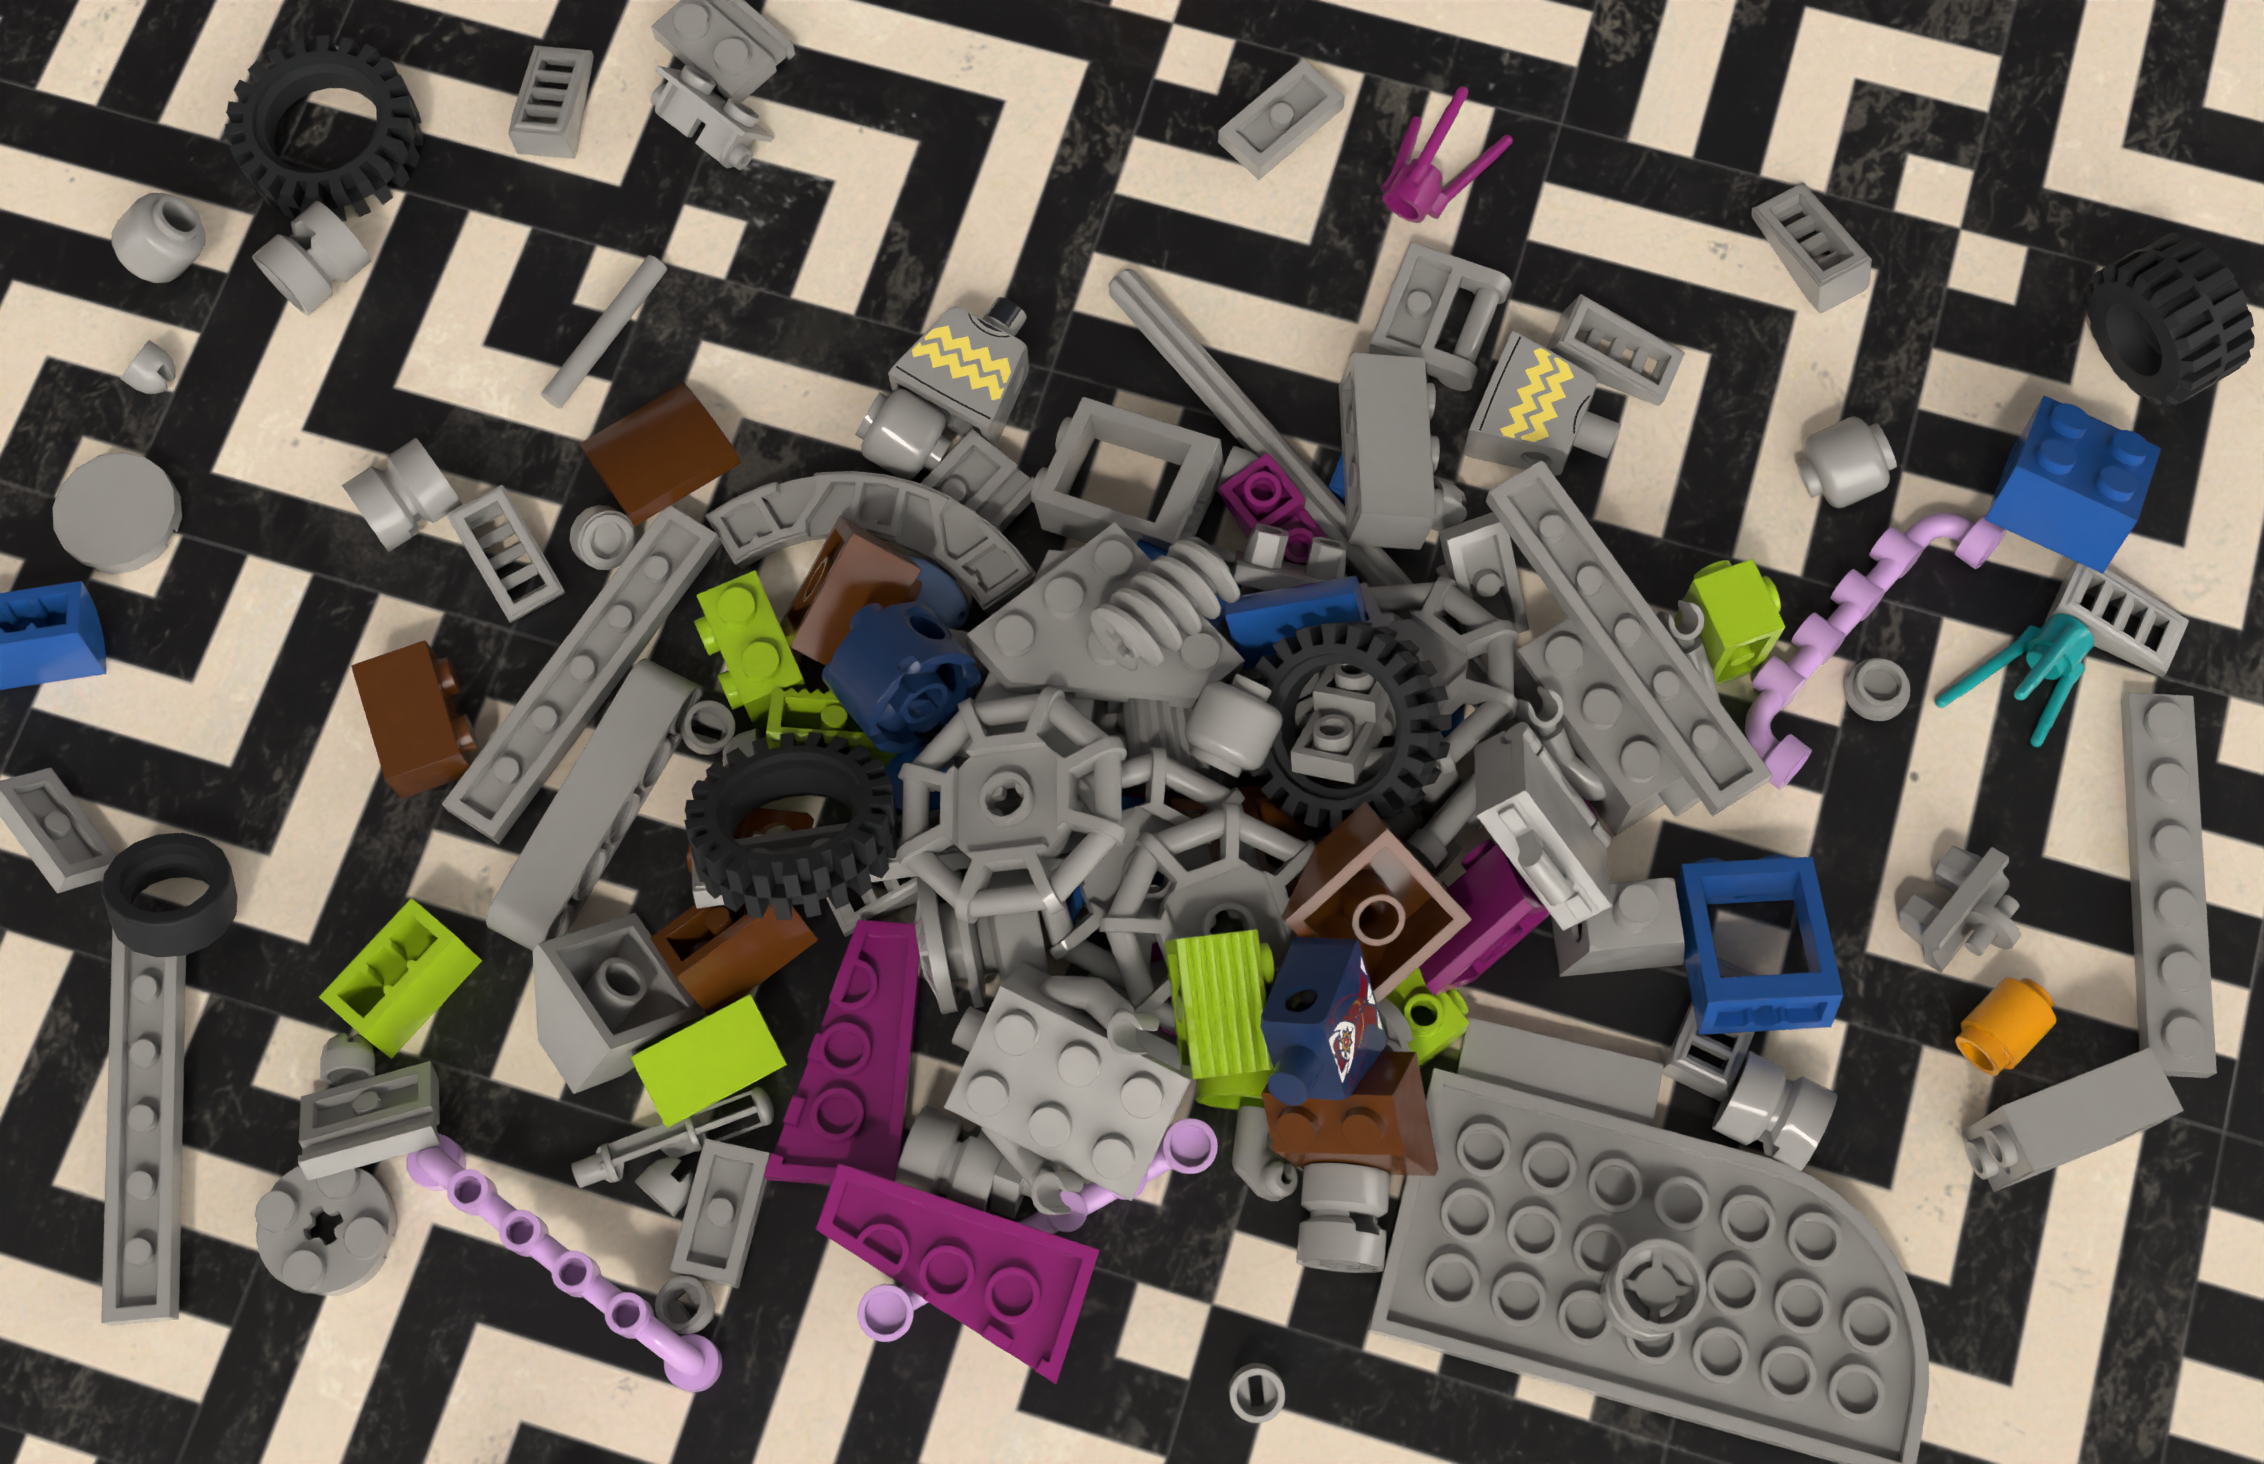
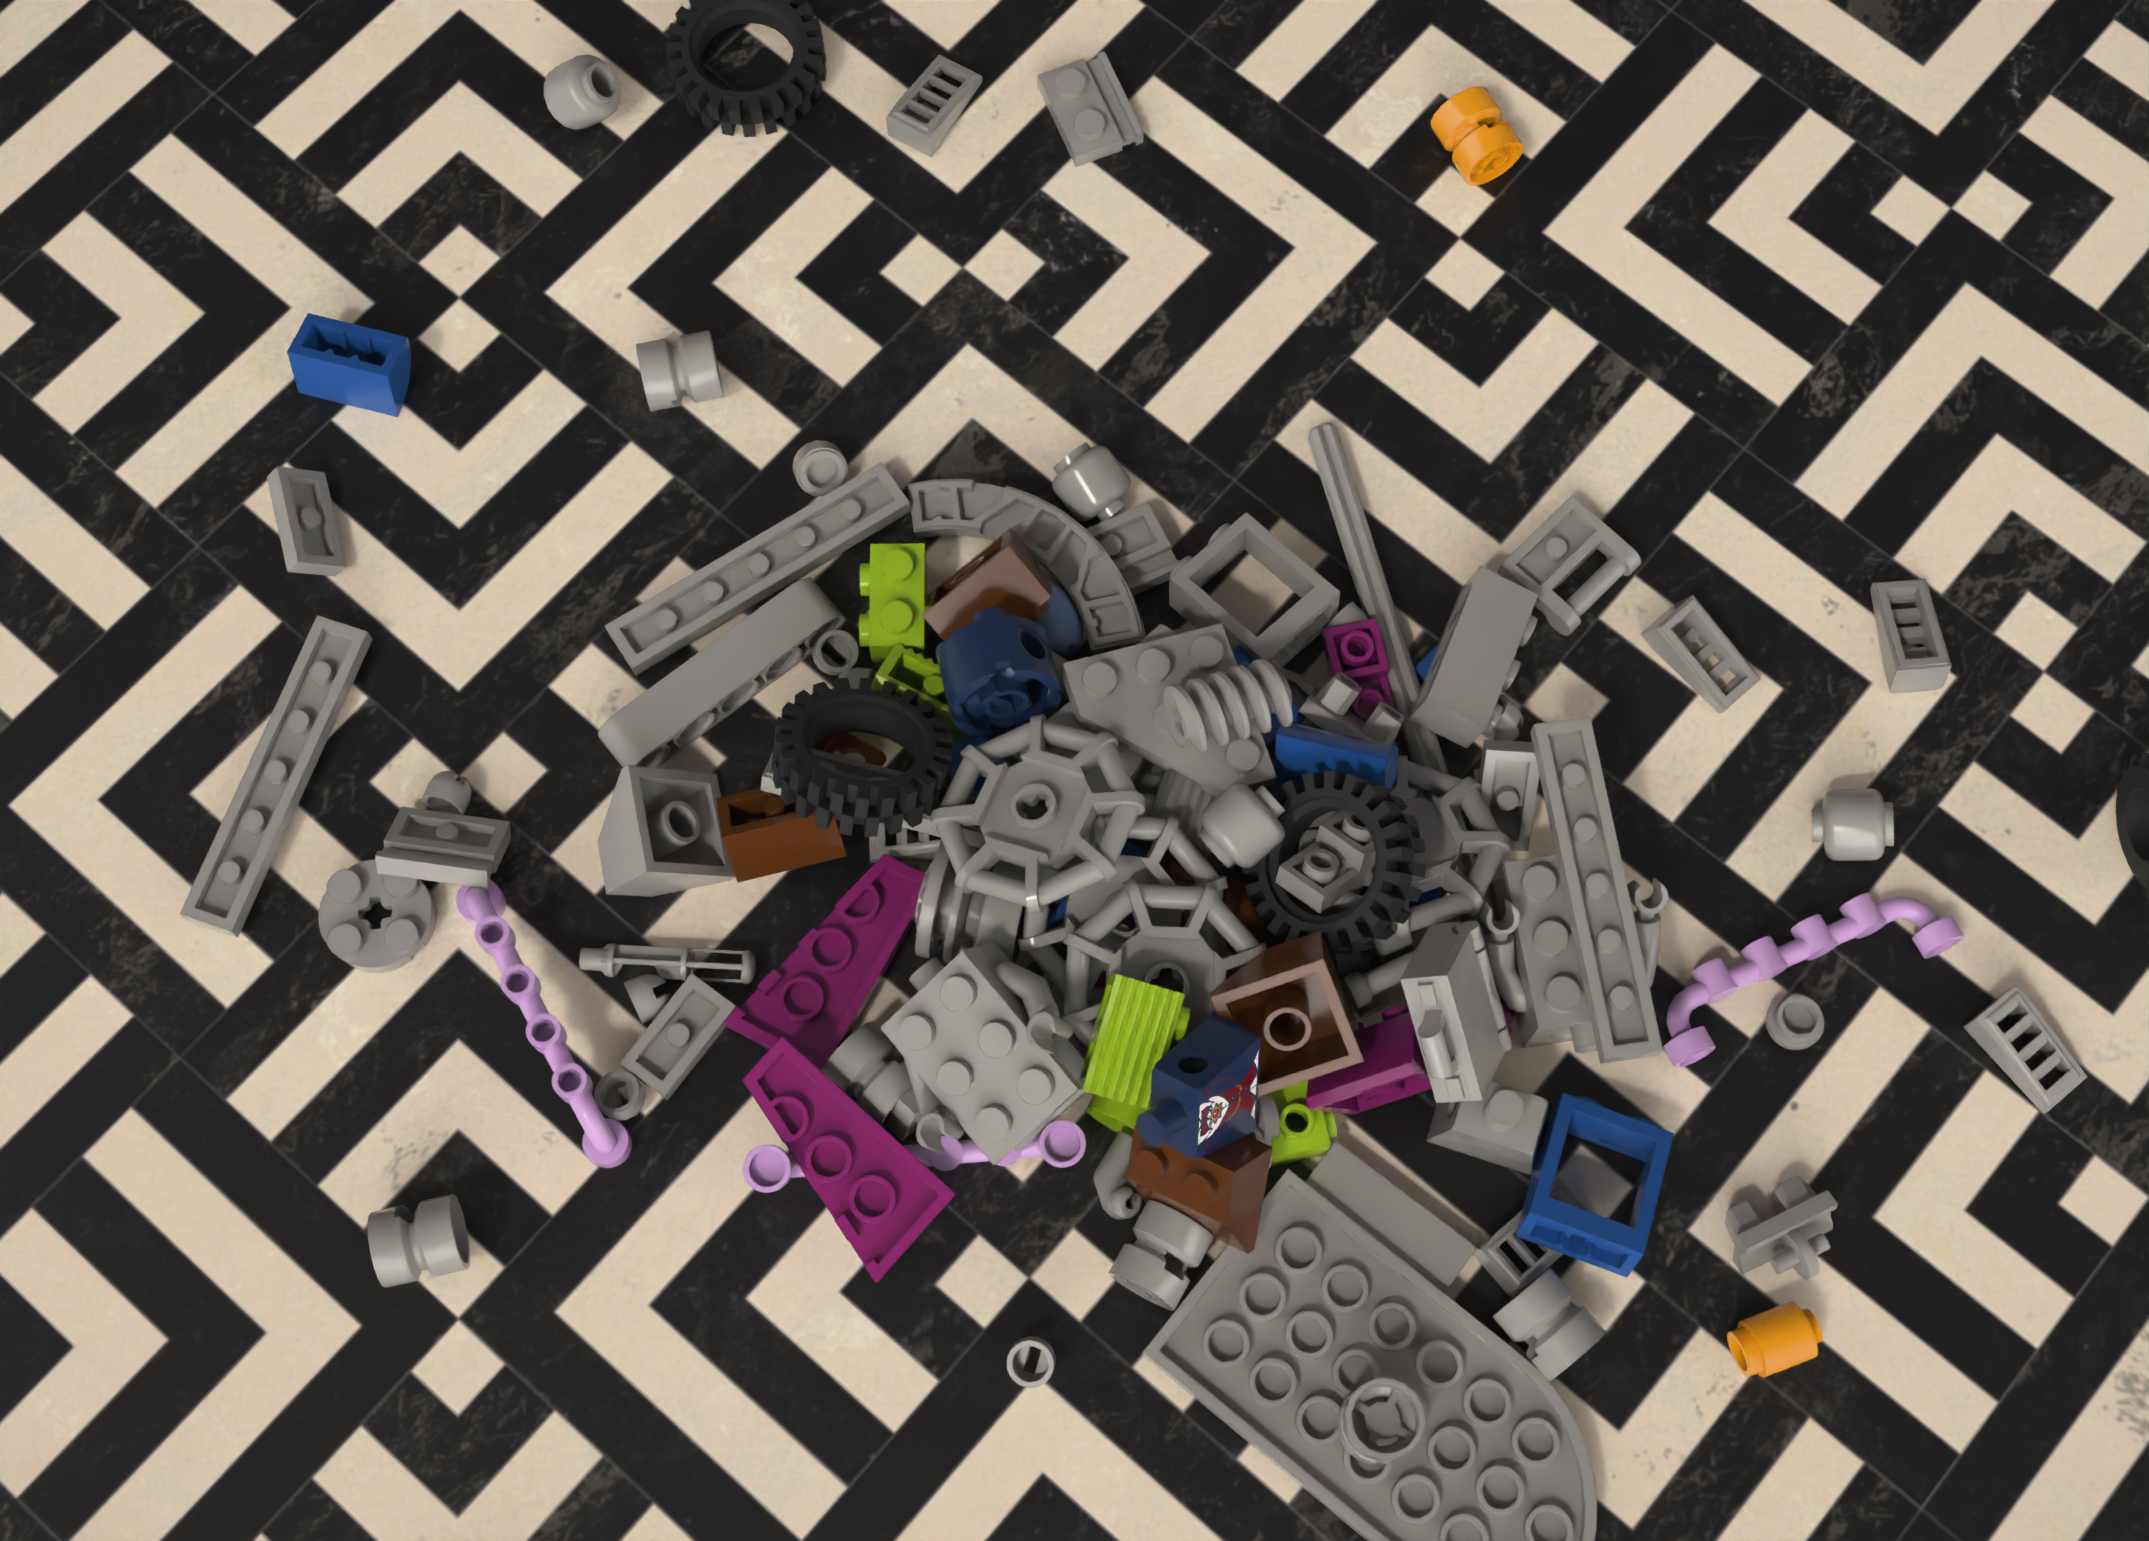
camera: 20 degrees right, 0 degrees up
(116, 512) = (459, 295): light grey tile -> none
(150, 369) = (530, 192): light grey hinge -> none
(177, 930) = (373, 578): black tyre -> none
(312, 258) = (692, 155): light grey wheel -> none
(400, 978) = (514, 748): lime brick -> none
(415, 718) = (613, 550): reddish brown brick -> none
(482, 511) = (732, 409): light grey slope -> none
(604, 332) = (893, 305): light grey bar -> none
(660, 453) = (893, 420): reddish brown slope -> none
(709, 1061) = (721, 913): lime brick -> none
(729, 123) = (1043, 147): light grey hinge -> none
(969, 368) = (1167, 452): light grey torso -> none
(1281, 119) = (1511, 352): light grey plate -> none
(1415, 187) = (1597, 451): magenta plant -> none
(1537, 411) = (1613, 676): light grey torso -> none
(1738, 615) = (1697, 912): lime brick -> none
(2051, 654) = (1956, 1054): teal plant -> none
(2071, 1120) = (1790, 1439): light grey window -> none
(2074, 484) = (2036, 922): blue brick -> none
(2168, 883) = (1966, 1286): light grey plate -> none

